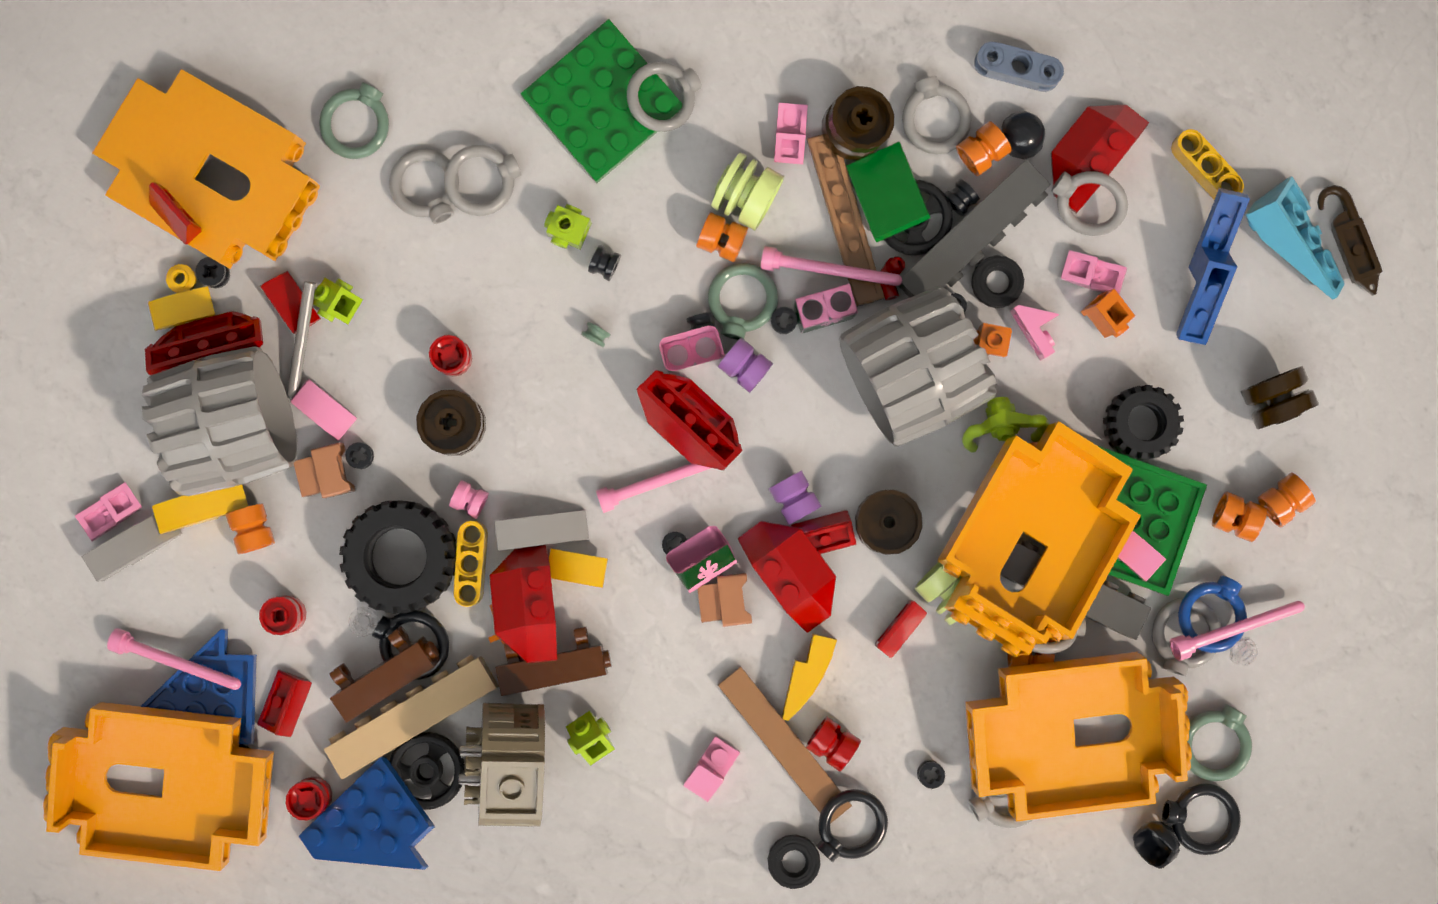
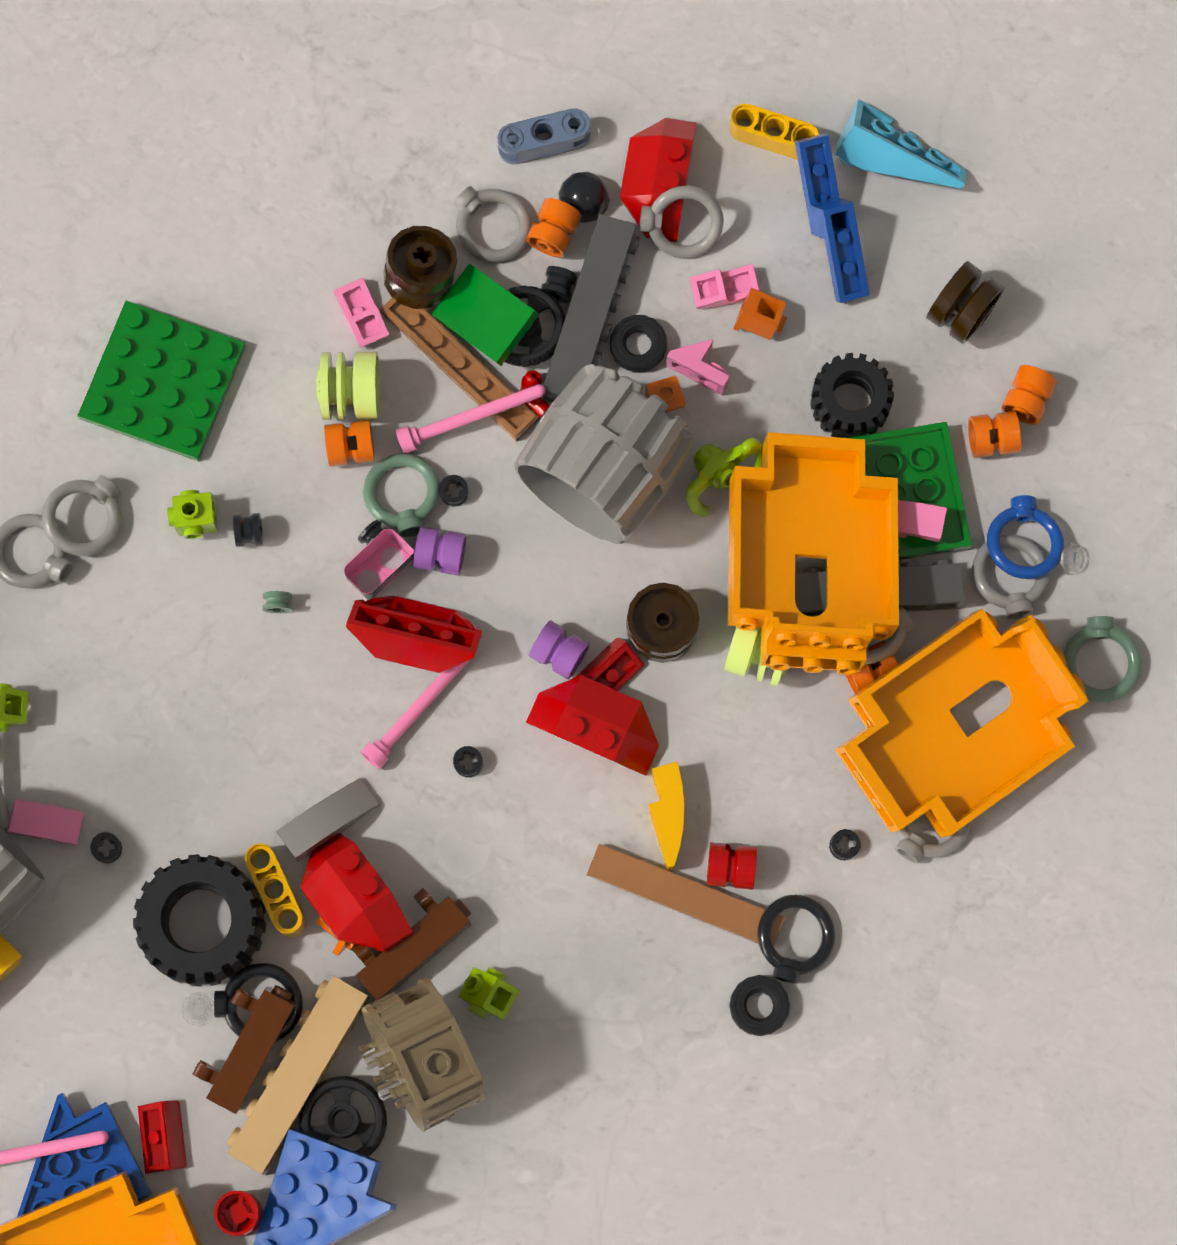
camera: 30 degrees left, 10 degrees down
(250, 529) = (30, 973): orange wheel -> none
(282, 615) = (113, 1044): red wheel -> none
(323, 472) = (79, 883): nougat piece -> none
(434, 418) = (200, 763): dark brown wheel -> none
(450, 355) = (144, 698): red wheel -> none
(468, 499) = (239, 828): bright pink wheel -> none
(577, 567) = (385, 835): yellow slope -> none
(686, 82) = (233, 319): light grey piece -> none
(705, 545) = (500, 757): bright pink piece -> none
(711, 768) = (626, 960): bright pink slope -> none
(724, 601) = (547, 787): nougat piece -> none
(828, 311) = (492, 467): bright pink piece -> none
(901, 628) = (734, 720): slope -> none
(1157, 843) = (1100, 786): black hair -> none
(1176, 813) = (1102, 749): black piece -> none
(1183, 647) = (1013, 581): bright pink piece -> none
(1353, 241) = (950, 126): dark brown plate -> none

